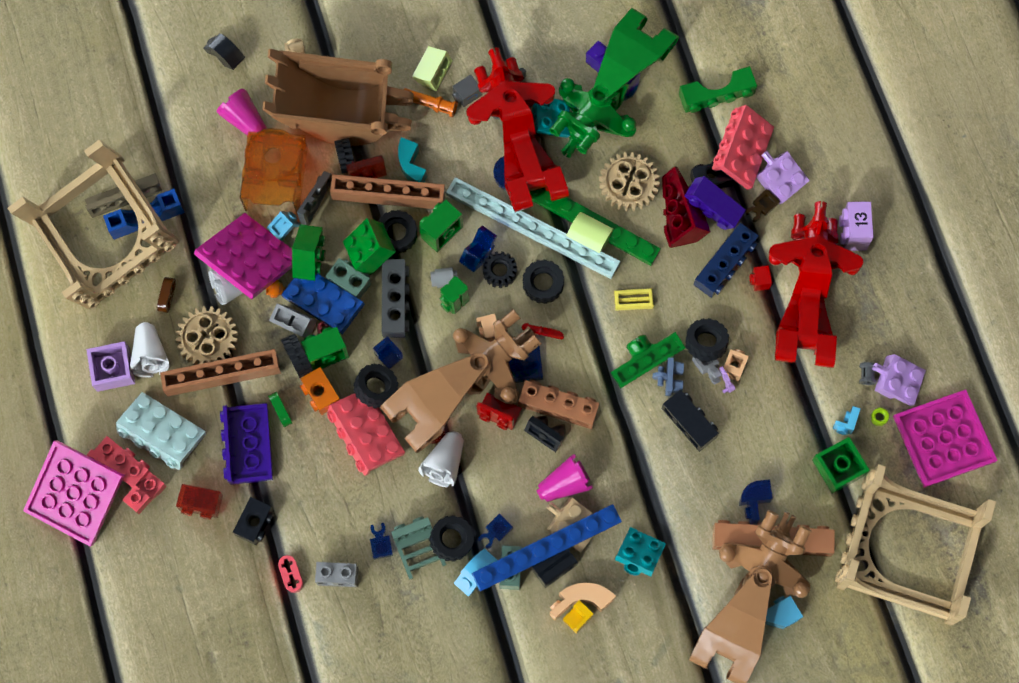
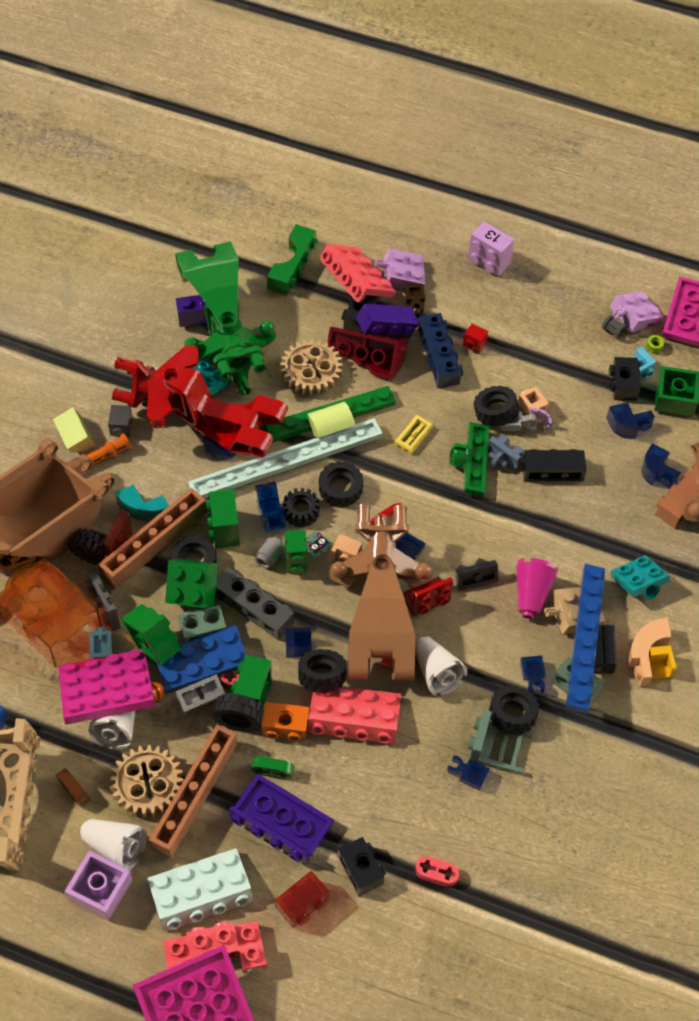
camera: 55 degrees left, 15 degrees down
(336, 574) = (471, 828): light grey brick -> none
(465, 580) = (561, 719): medium azure brick -> none
(479, 303) = (317, 543): none -> tile
(558, 404) = (461, 545): nougat brick -> none
(776, 447) = (625, 423): none -> clear blue brick
(815, 426) = (625, 378): none -> black brick
(816, 254) = (508, 299): red piece -> none

